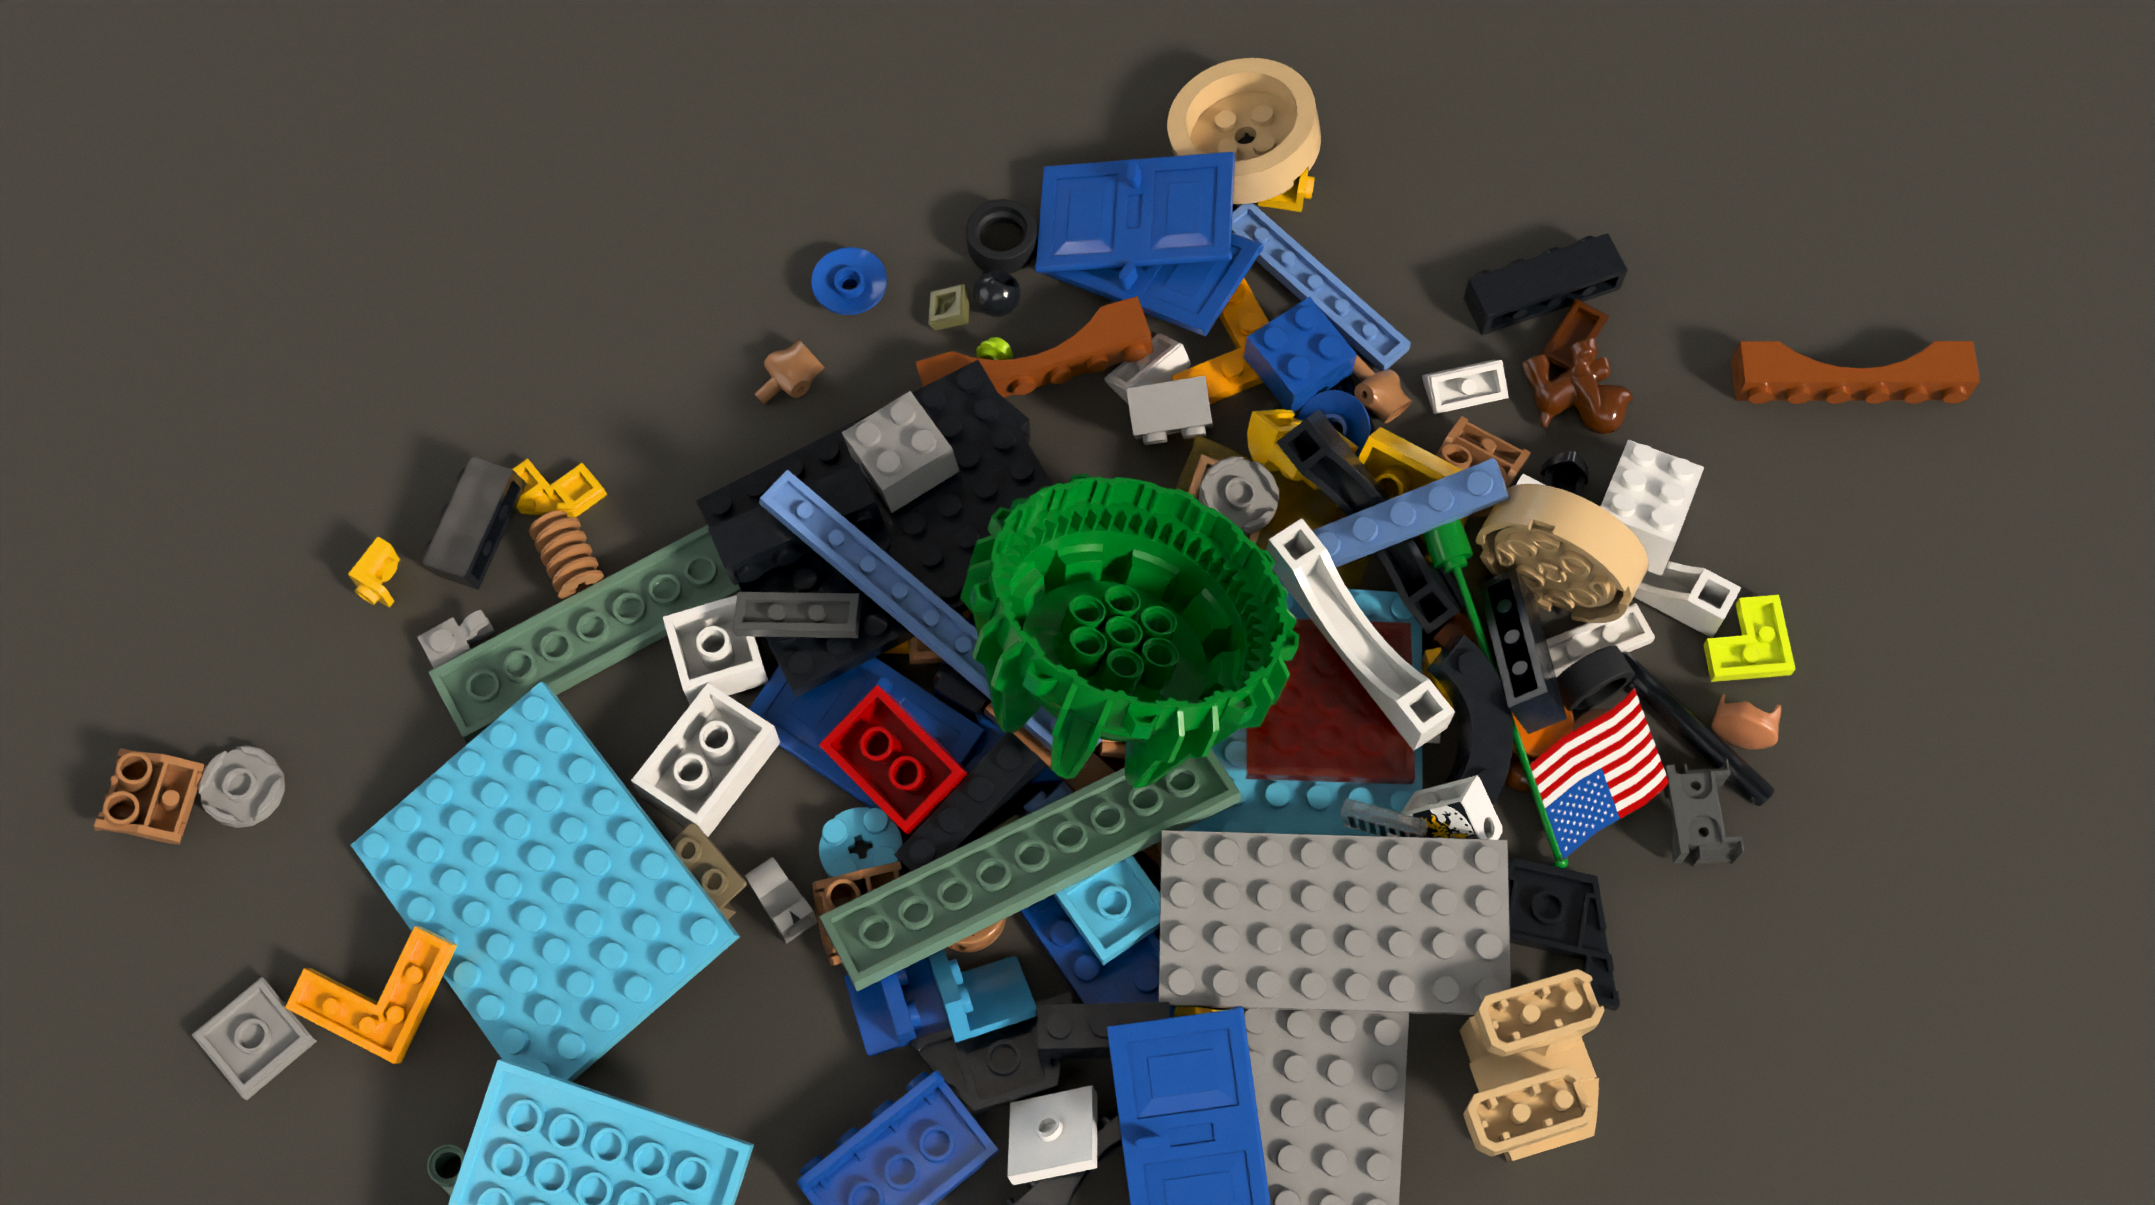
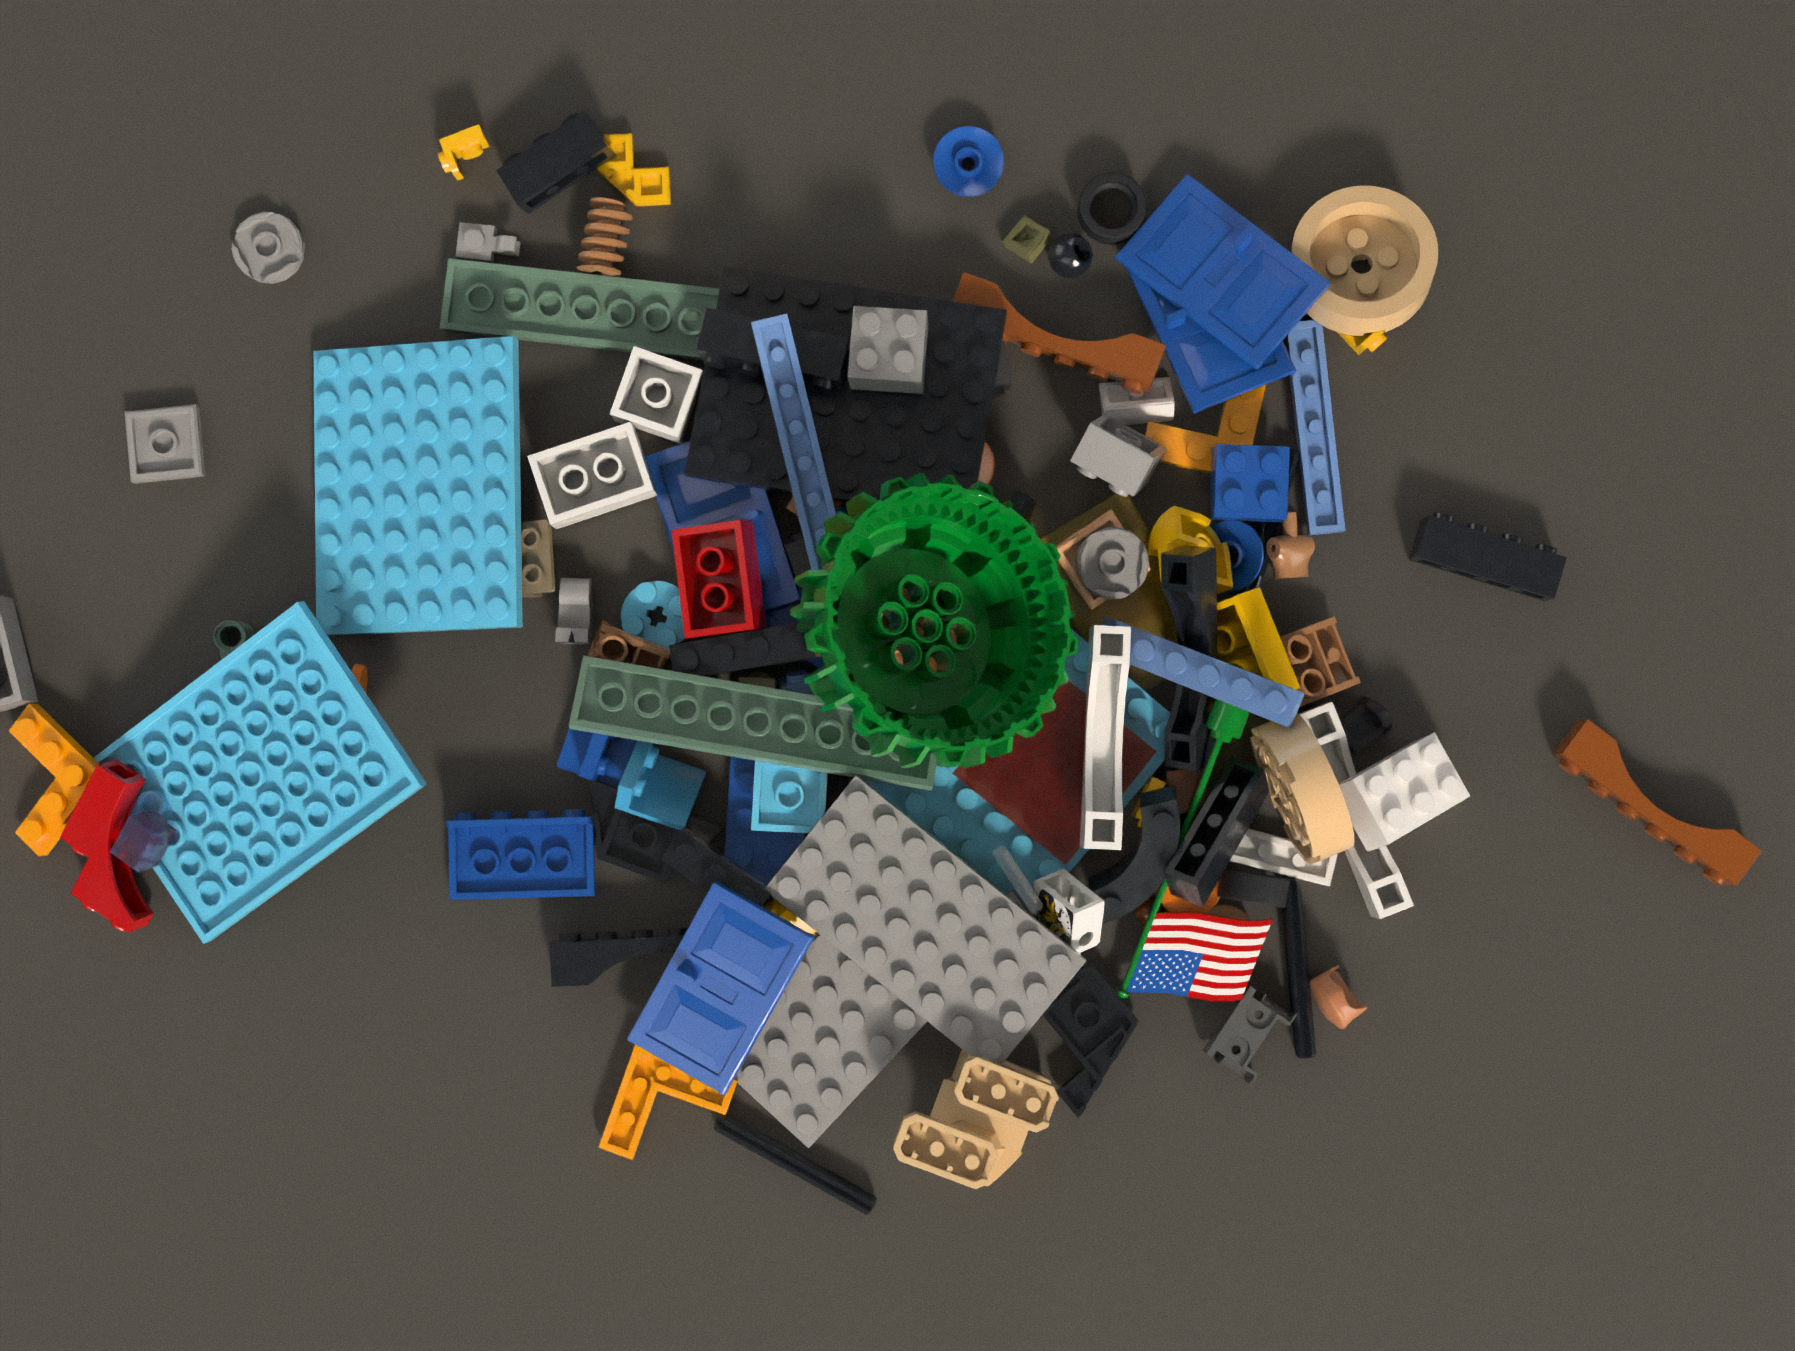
camera: 30 degrees right, 20 degrees up
(150, 796) = (199, 211): medium nougat slope -> none
(391, 1022) = (254, 502): light orange plate -> none
(789, 371) = (872, 205): medium nougat piece -> none
(797, 614) = (724, 421): dark grey plate -> none
(994, 349) = (1030, 305): lime plate -> none
(1052, 1135) = (634, 916): white plate -> none
(1466, 386) = (1360, 591): white slope -> none
(1578, 324) = (1474, 615): reddish brown tile -> none
(1599, 406) = (1441, 685): reddish brown animal -> none
(1760, 650) = (1397, 953): neon yellow plate -> none

